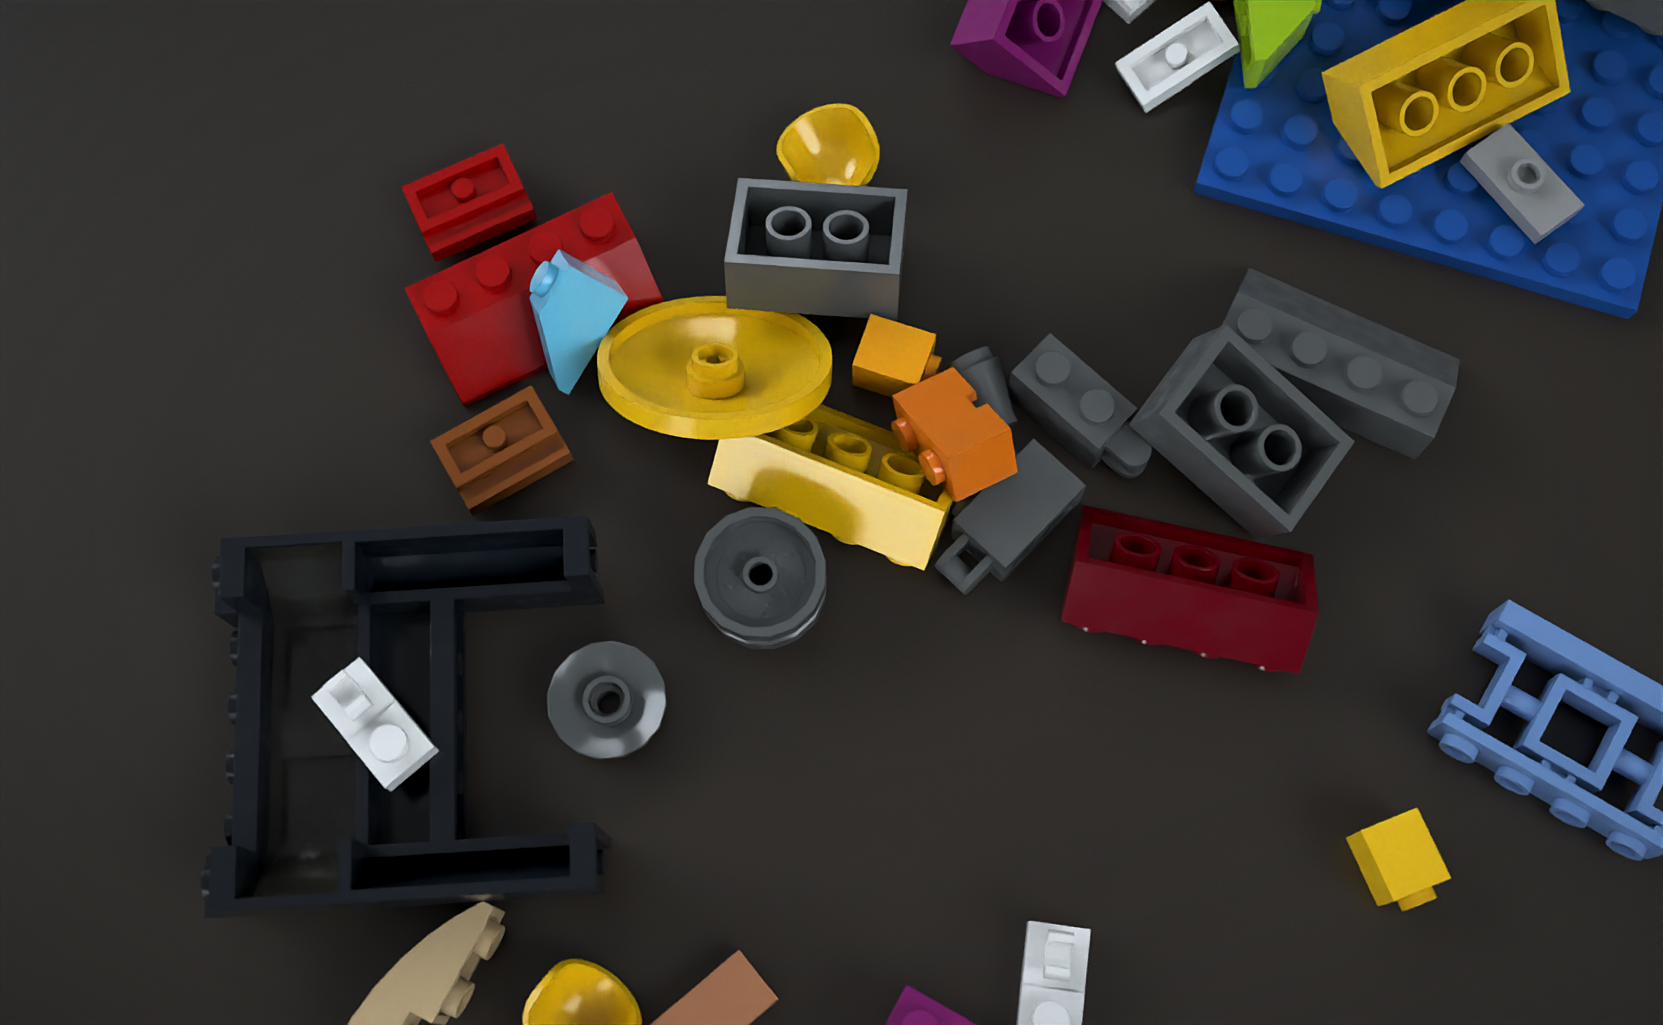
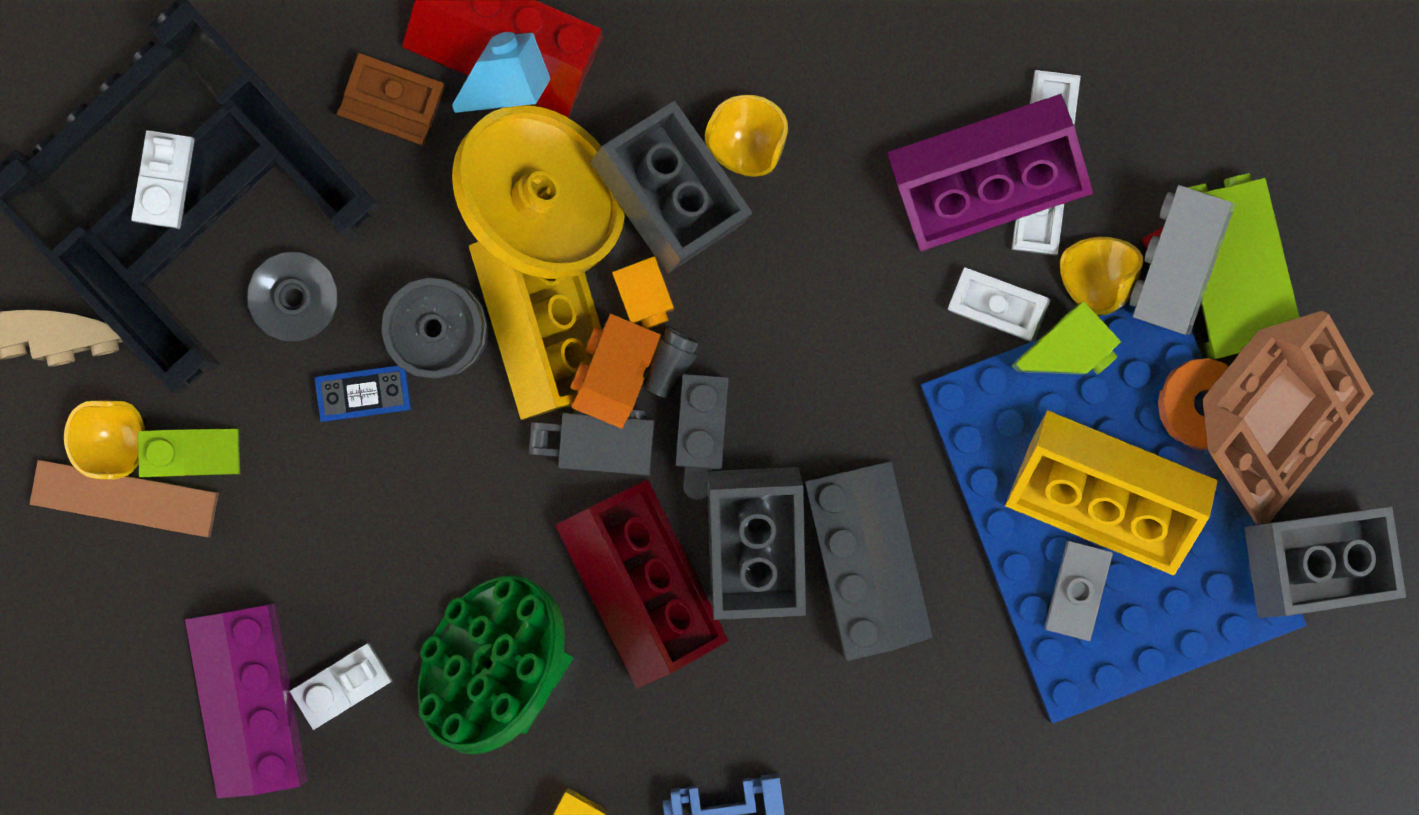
camera: 45 degrees right, 15 degrees up
(672, 942) = (188, 452): none -> lime slope
(764, 713) = (362, 393): none -> tile
(1166, 794) = (491, 665): none -> green bracket

